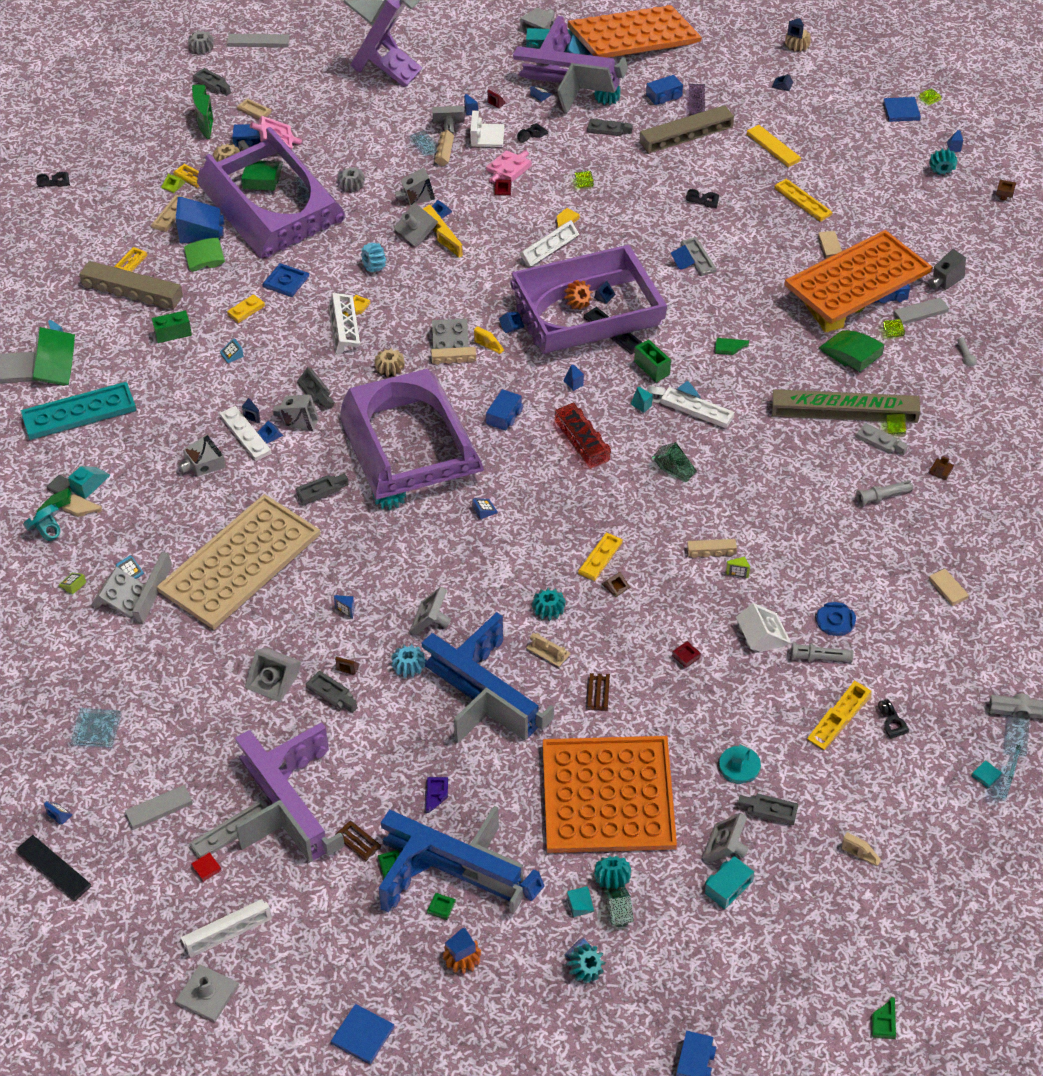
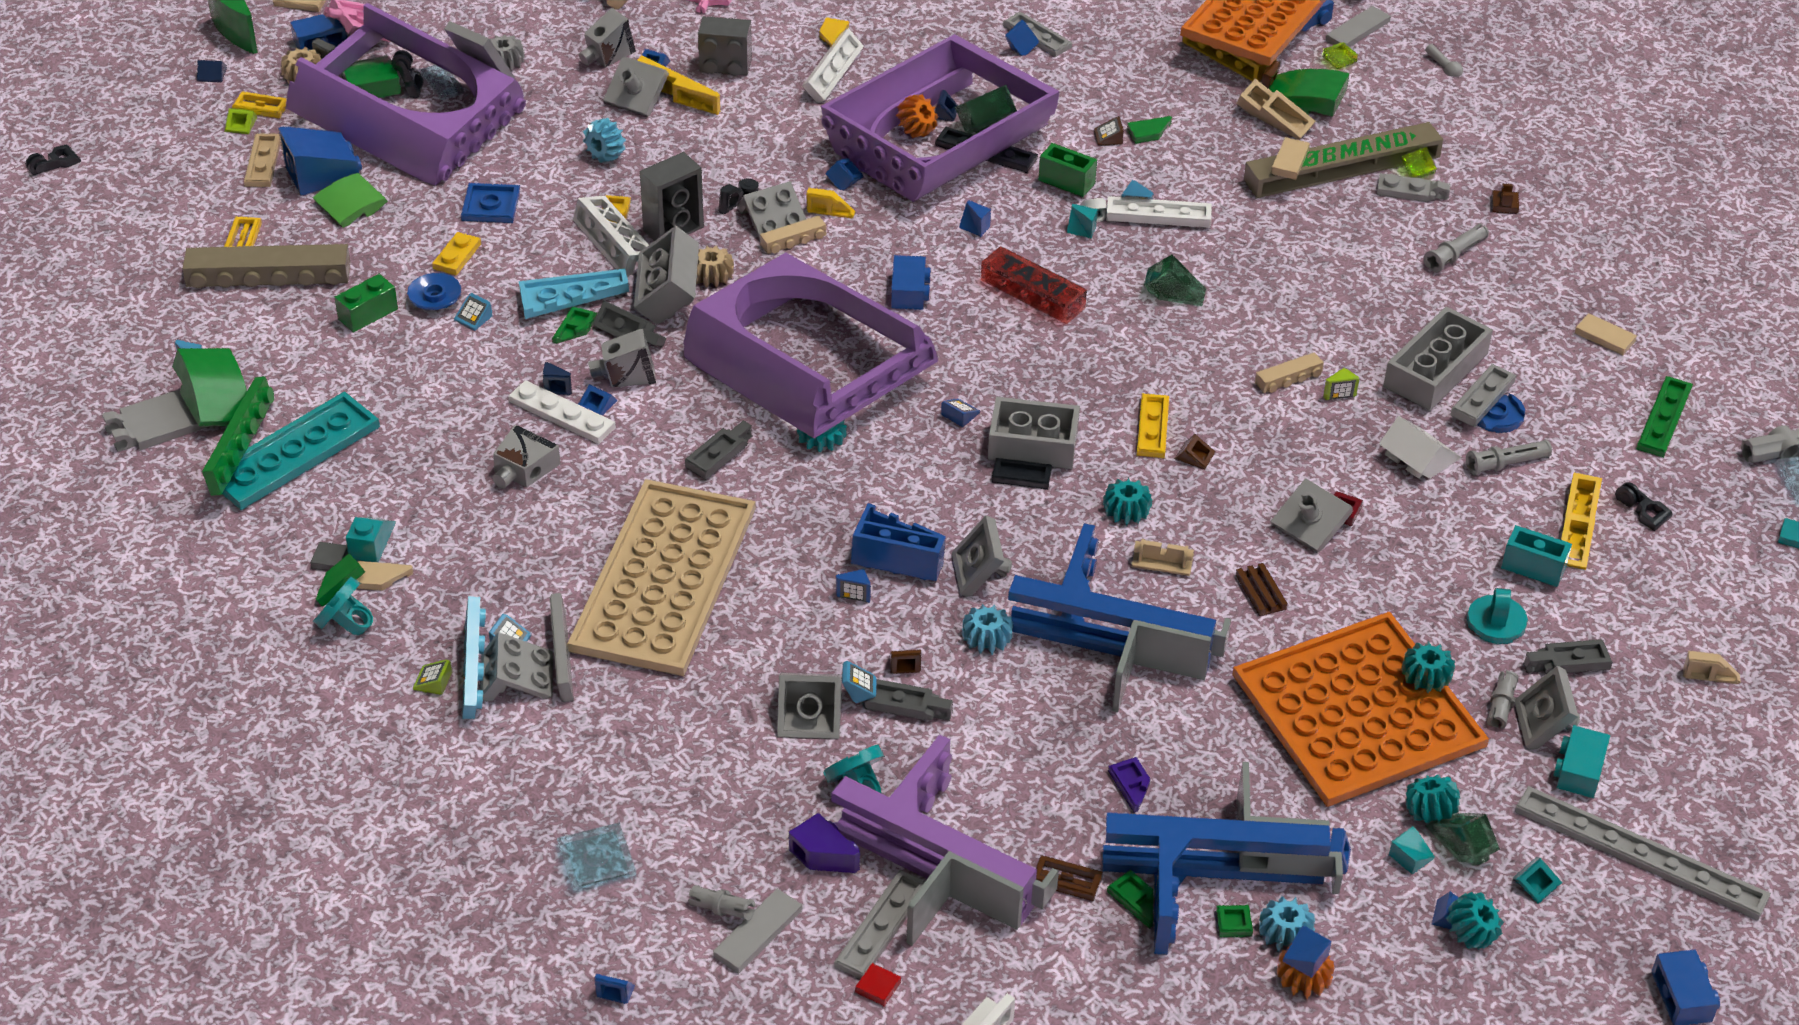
camera: 25 degrees left, 5 degrees down
(47, 392) = (238, 435): none -> green plate
(95, 577) = (472, 669): none -> medium azure wing
(146, 782) = (721, 902): none -> light grey pin
(174, 145) = (210, 71): none -> dark blue slope
(216, 330) = (434, 291): none -> blue dish
(223, 767) = (823, 847): none -> dark purple slope
(270, 726) = (857, 768): none -> teal tile
(279, 170) = (412, 79): none -> black piece
(286, 378) = (576, 324): none -> green tile
(291, 353) = (562, 292): none -> medium azure wing
(306, 669) = (858, 682): none -> dark azure slope
(324, 180) = (477, 47): none -> light grey tile
(353, 361) = (666, 275): none -> light grey brick
(384, 310) = (672, 196): none -> dark grey brick
(384, 587) = (897, 547): none -> blue wedge
(444, 314) = (728, 202): none -> black piece
(477, 918) = (1283, 920): none -> medium azure gear
(485, 211) = (725, 45): none -> dark grey brick
(497, 563) = (1022, 473): none -> black tile
(503, 187) = (721, 10): dark red slope -> none
(516, 538) = (1034, 432): none -> light grey brick
(625, 302) = (985, 110): none -> clear green brick
(648, 951) = (1537, 879): none -> teal slope
(660, 653) = (1312, 515): none -> light grey tile
(662, 783) = (1428, 667): none -> teal gear
(701, 341) = (1110, 132): none -> slope
(705, 821) = (1502, 699): none -> light grey pin
(732, 959) = (1643, 853): none -> light grey tile
(789, 730) = (1536, 556): none -> teal brick
(802, 395) = (1290, 158): none -> tan tile
(814, 569) = (1437, 358): none -> light grey brick
(821, 356) = (1275, 110): none -> tan slope
(830, 605) = (1483, 395): none -> light grey tile
(833, 330) = (1270, 74): none -> reddish brown tile
(951, 659) = (1664, 416): none -> green tile

